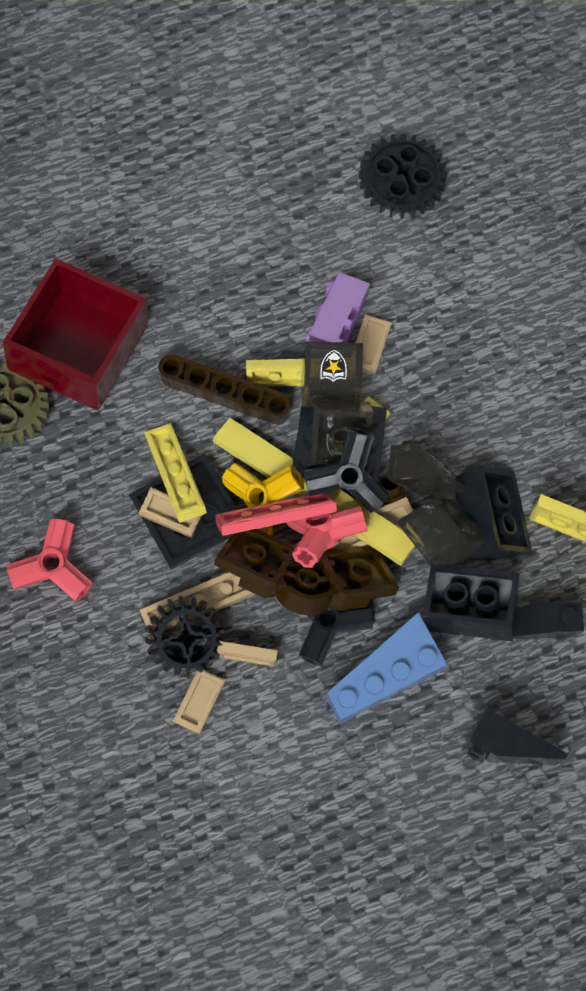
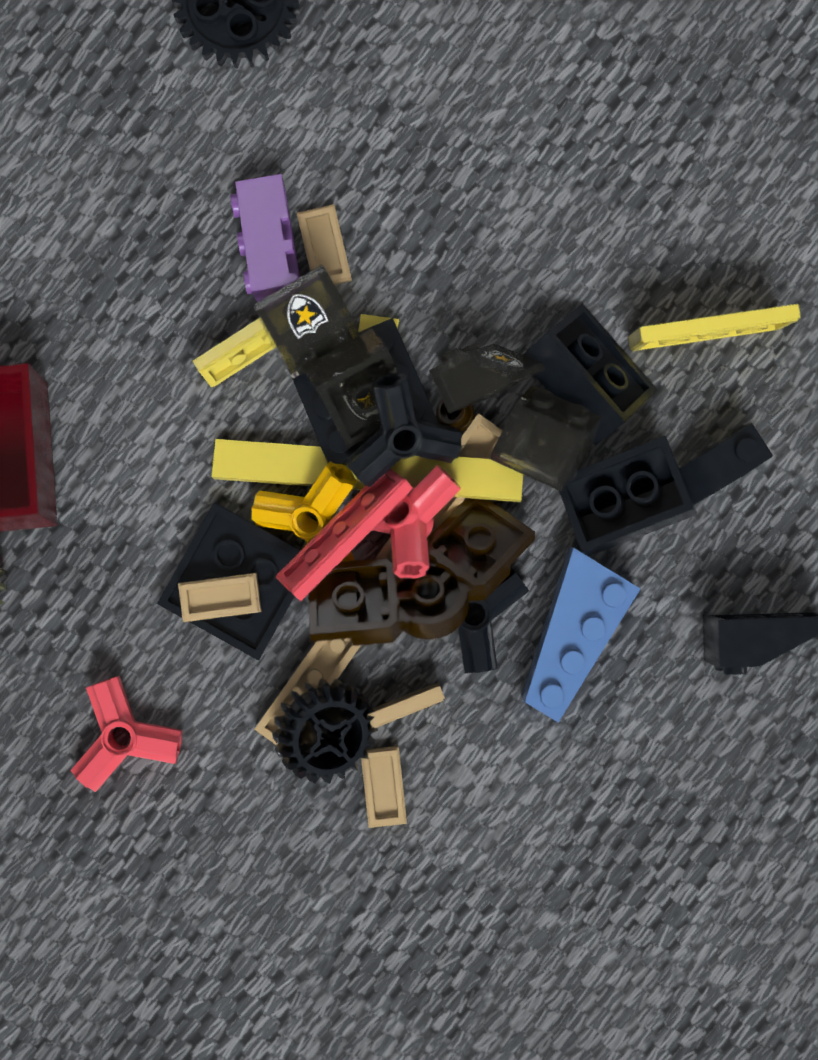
camera: 30 degrees left, 15 degrees up
(175, 473) = (195, 549): light yellow tile -> none
(214, 380) = (169, 404): dark brown beam -> none

